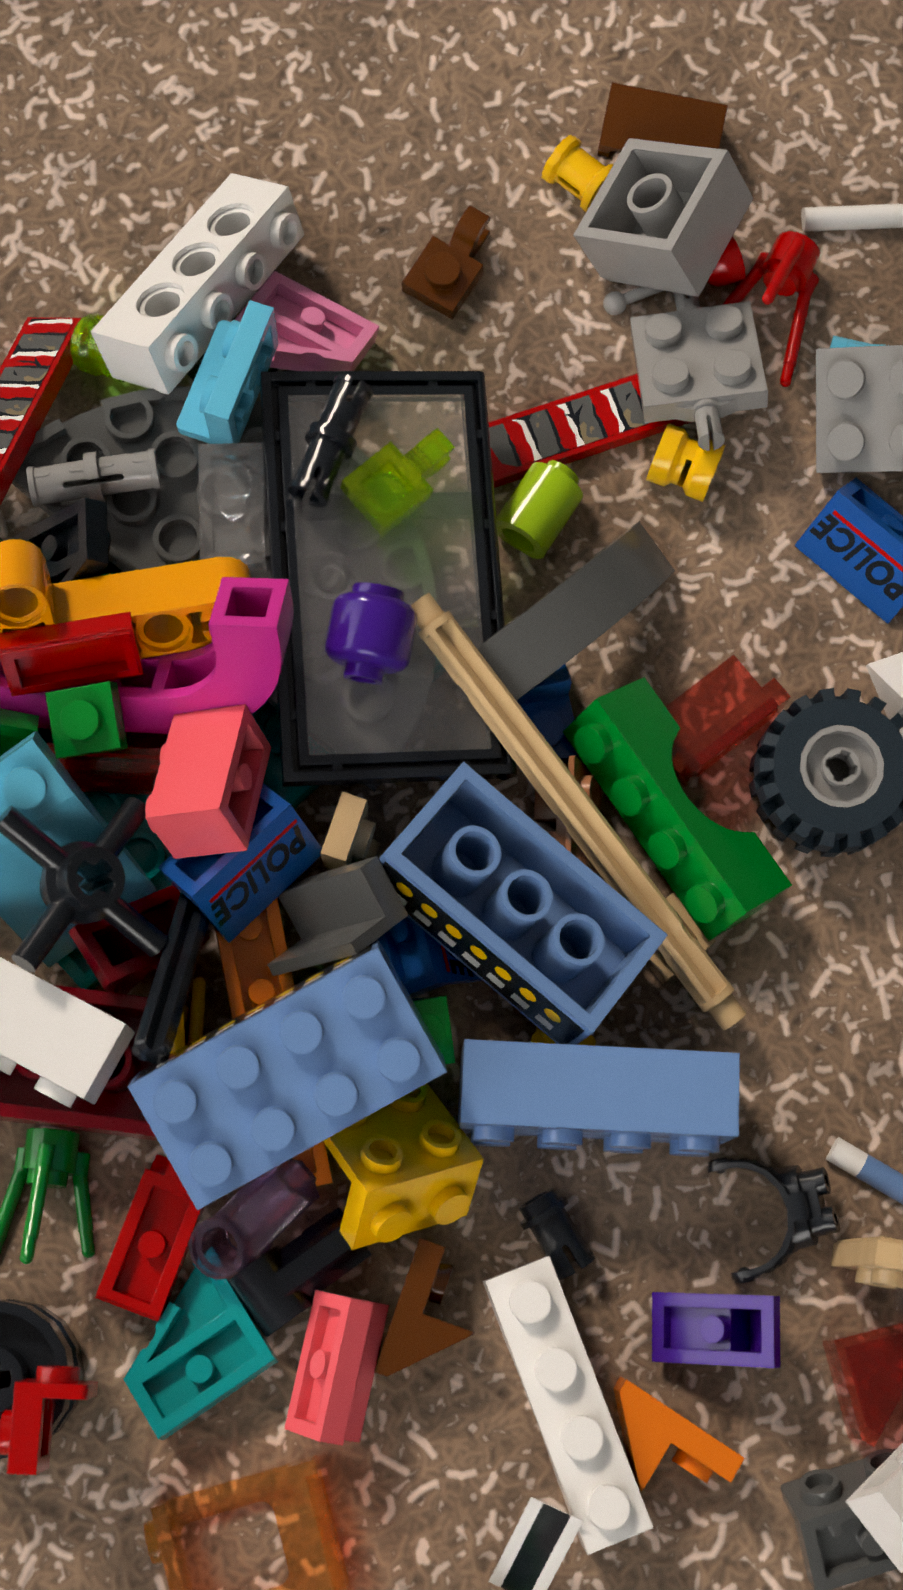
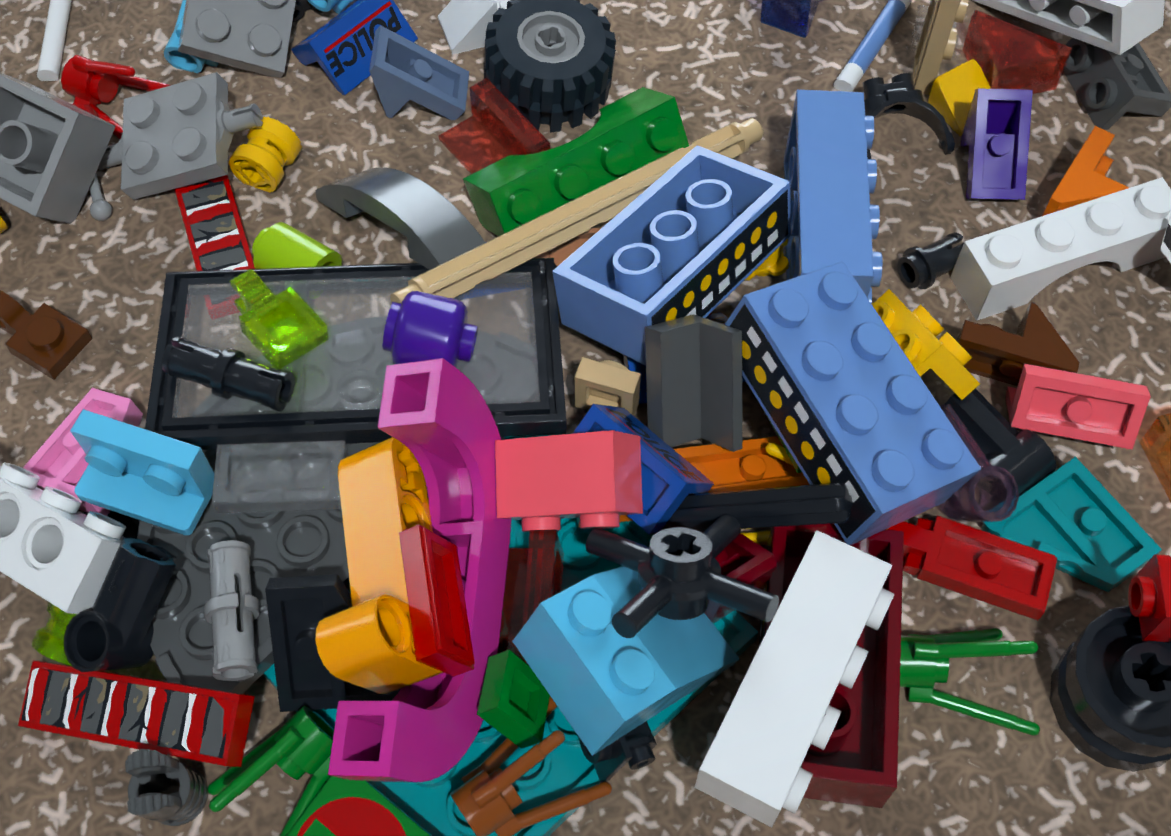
camera: 85 degrees left, 15 degrees down
(86, 720) = (503, 588): green plate -> none
(101, 383) = (120, 623): none -> black piece
(801, 619) = (413, 73): none -> sand blue slope
(815, 1306) = (954, 93): none -> yellow slope

